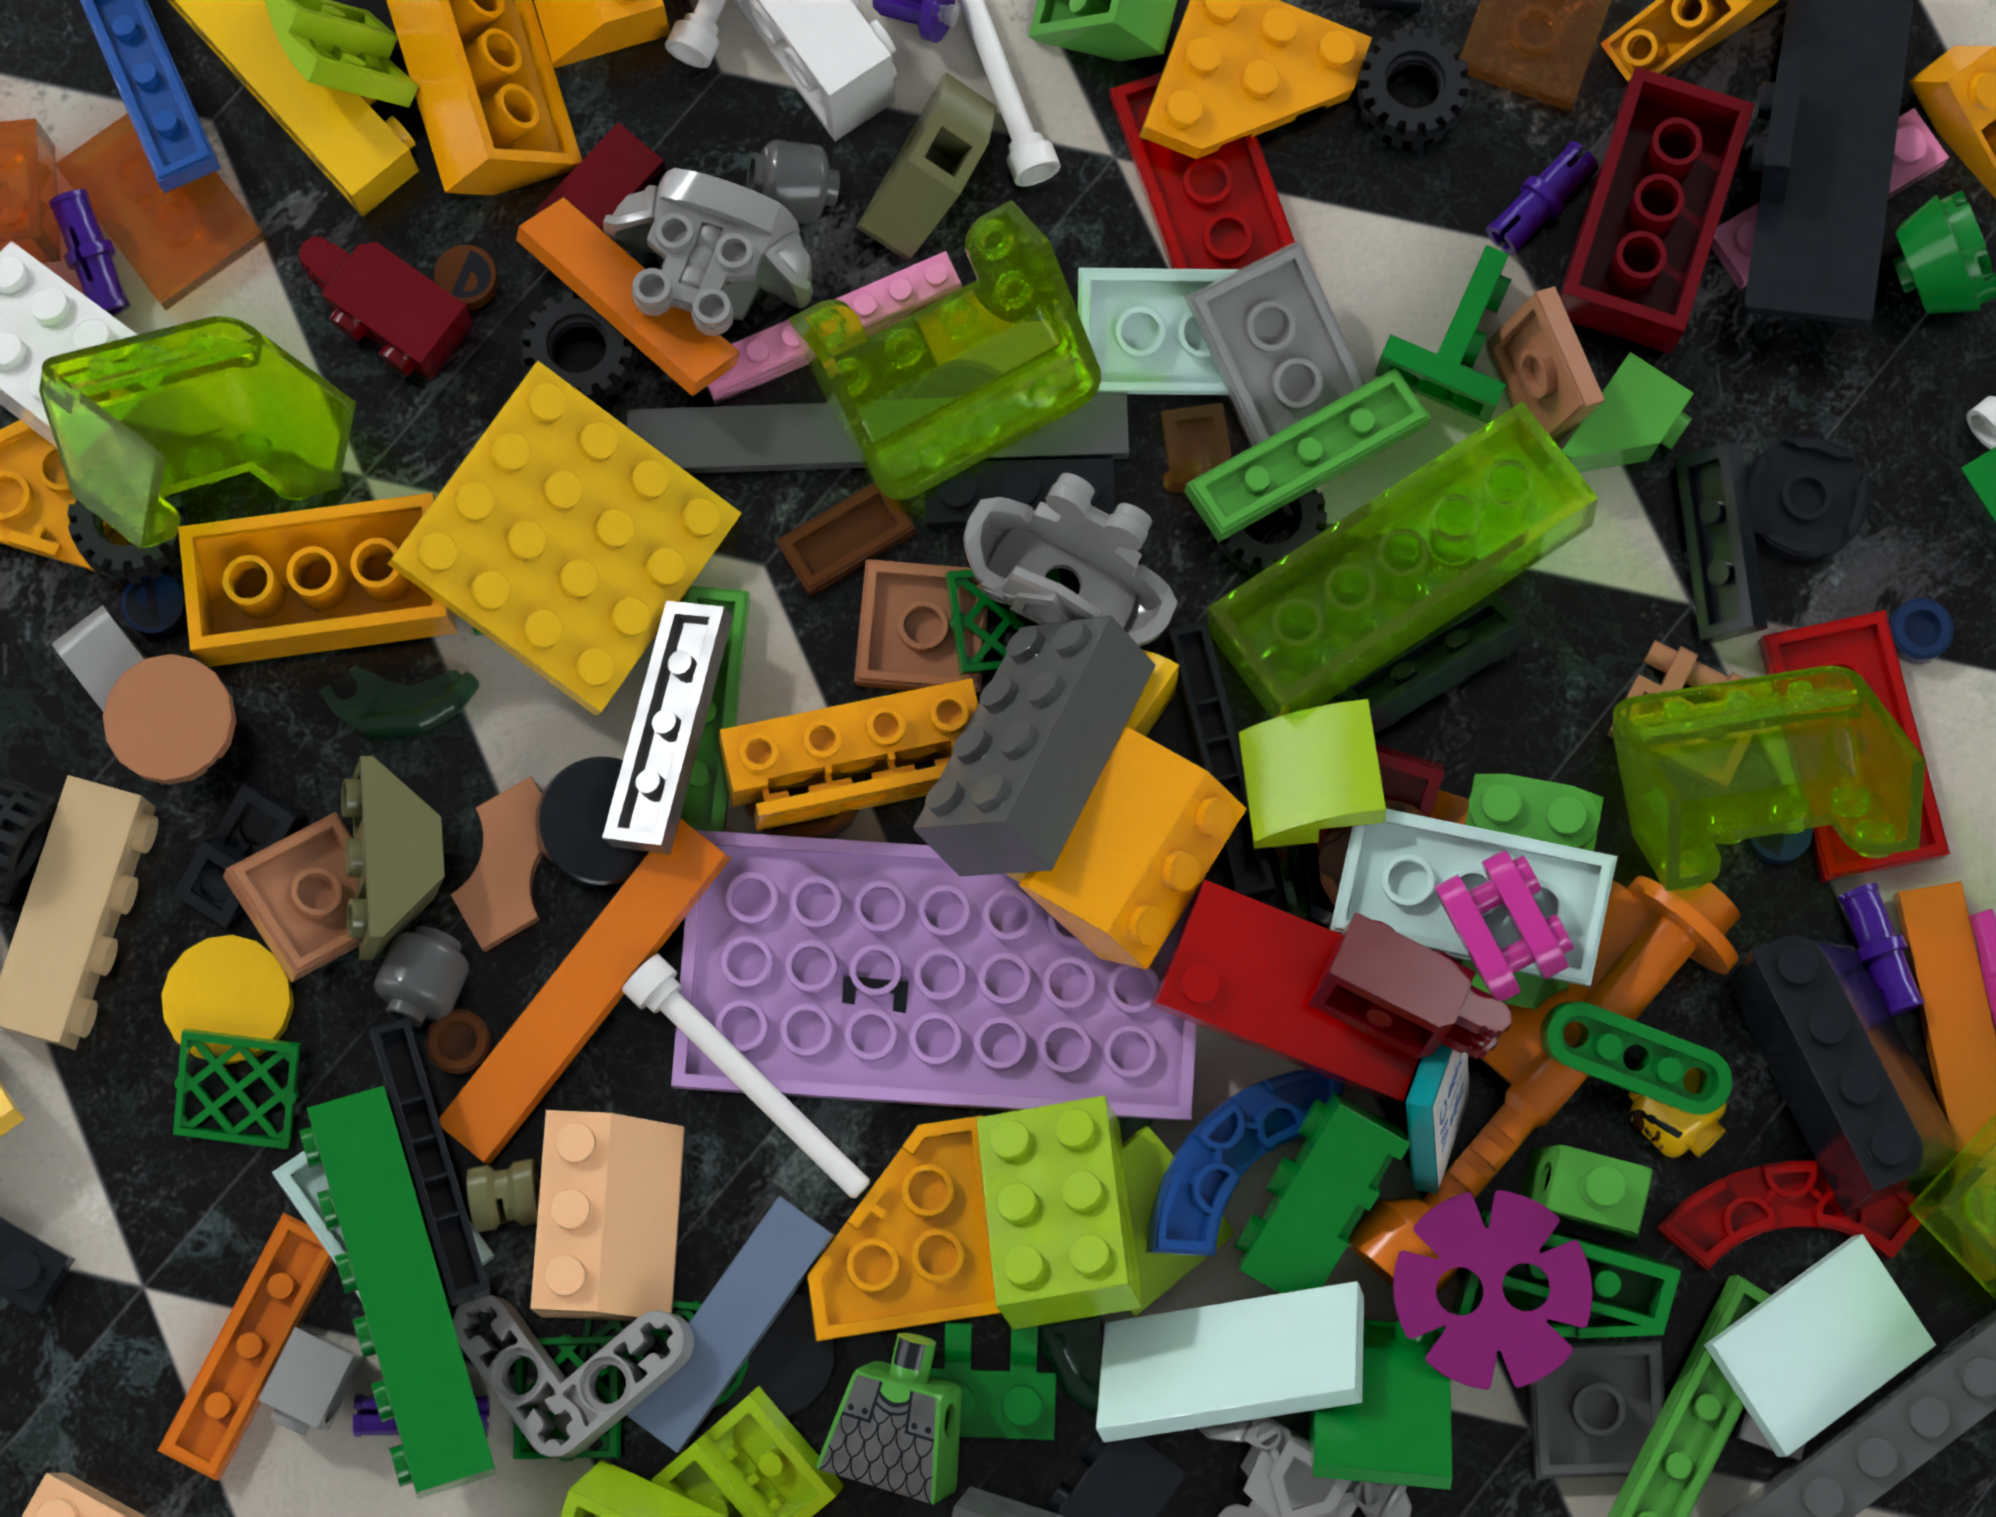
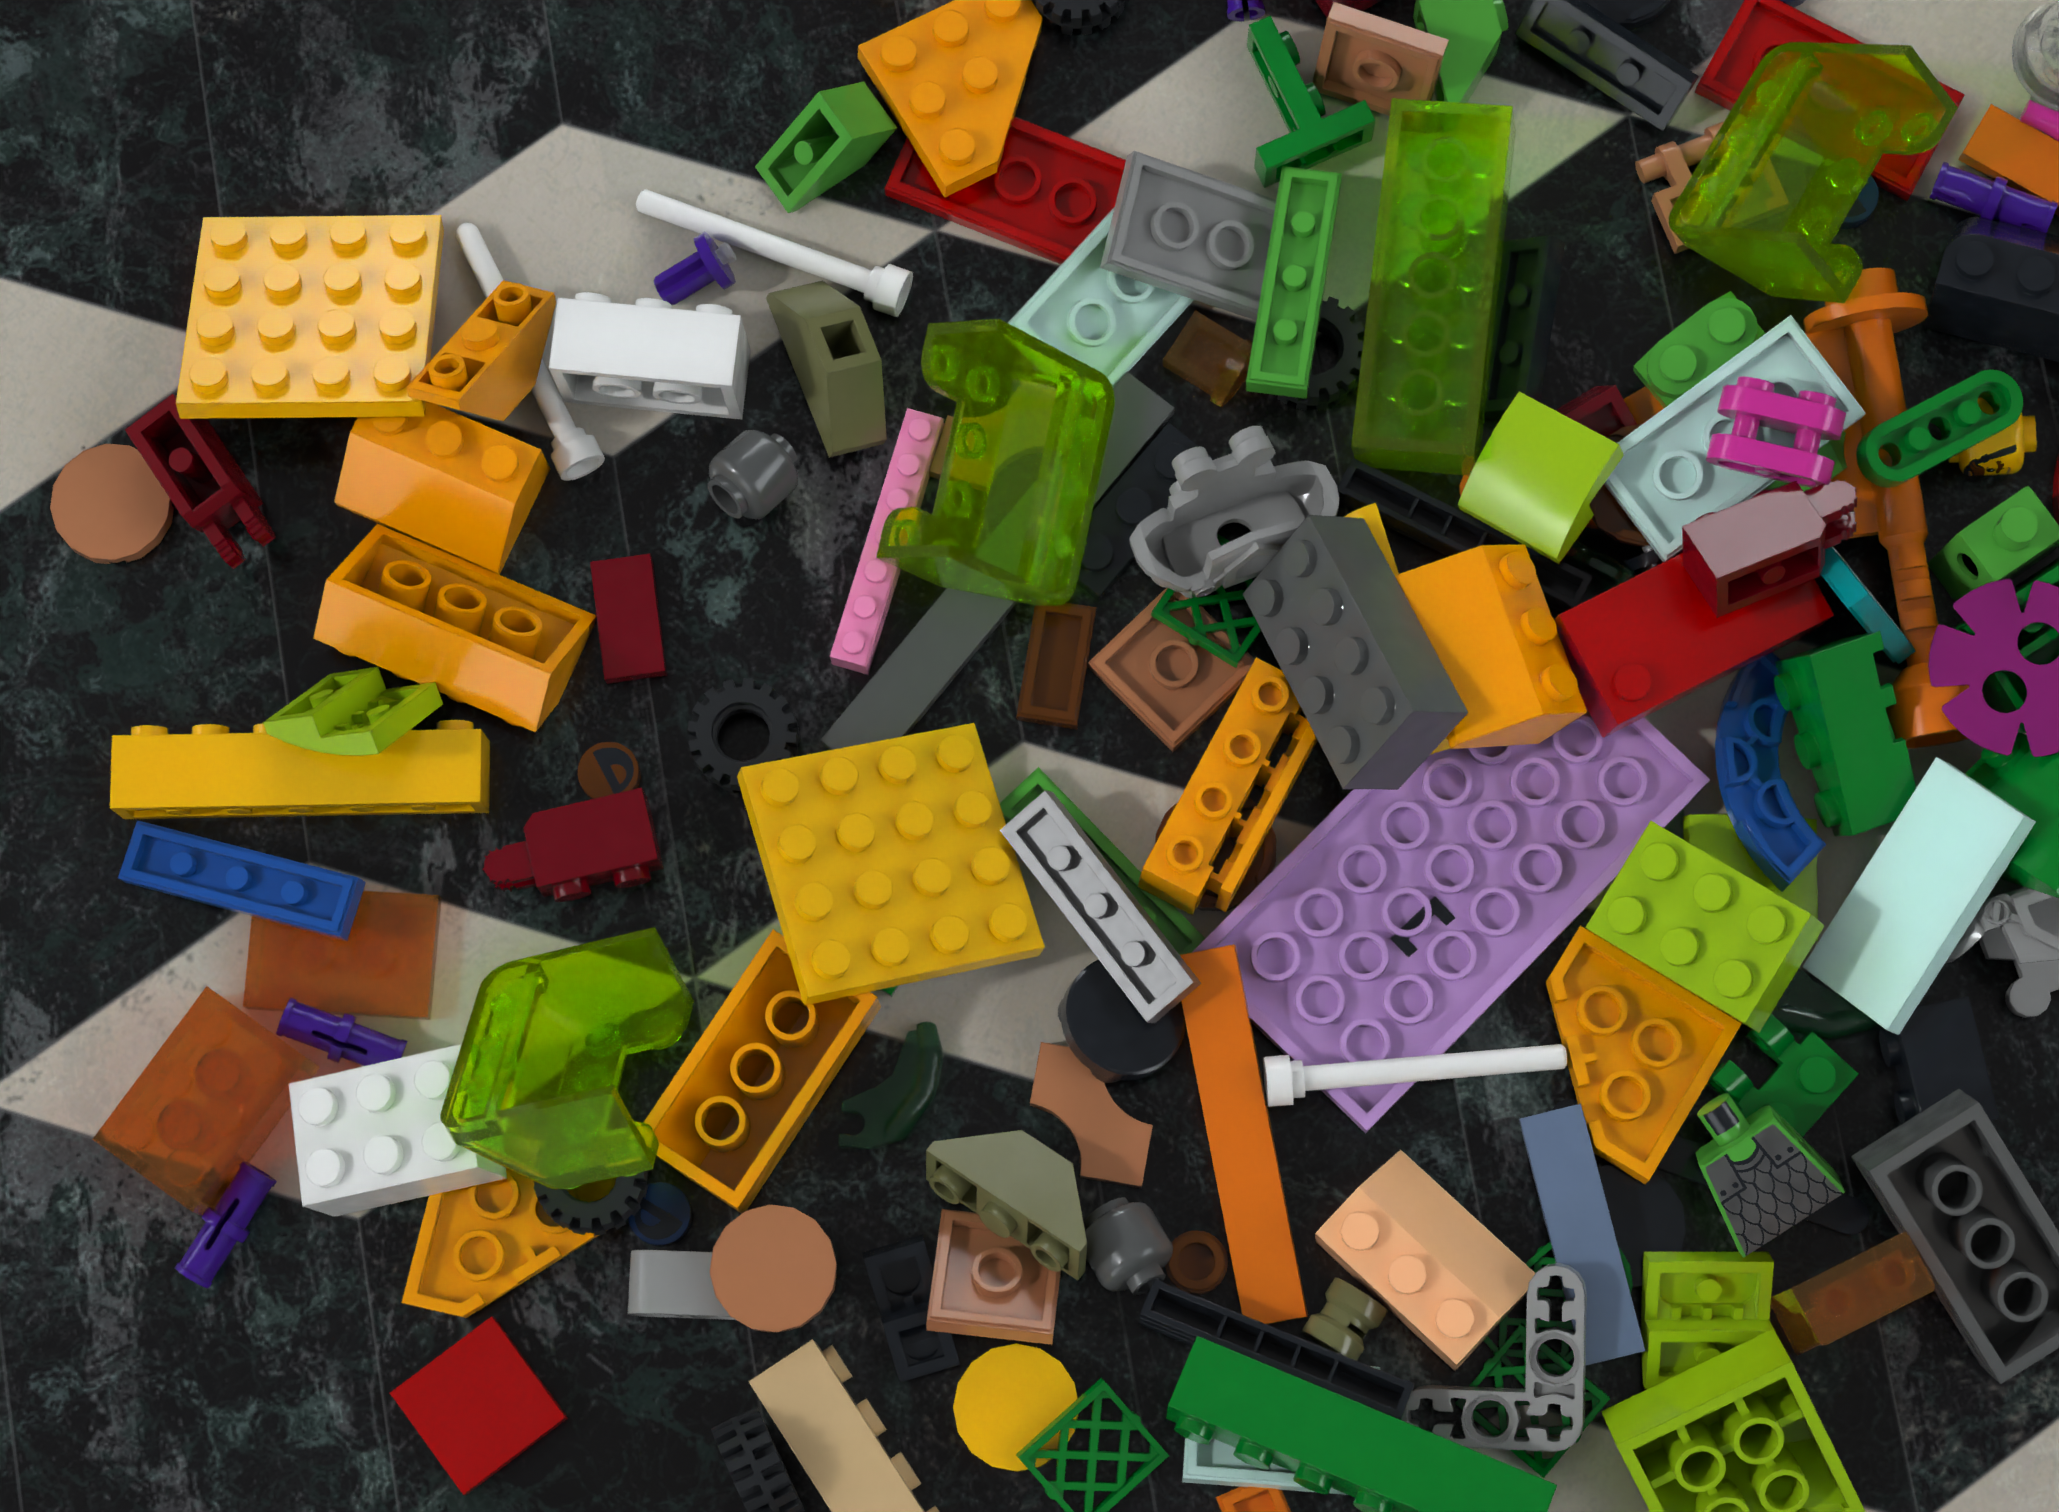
camera: 45 degrees left, 0 degrees up
(604, 279) = (740, 664): orange tile -> none
(710, 237) = (759, 573): light grey piece -> none

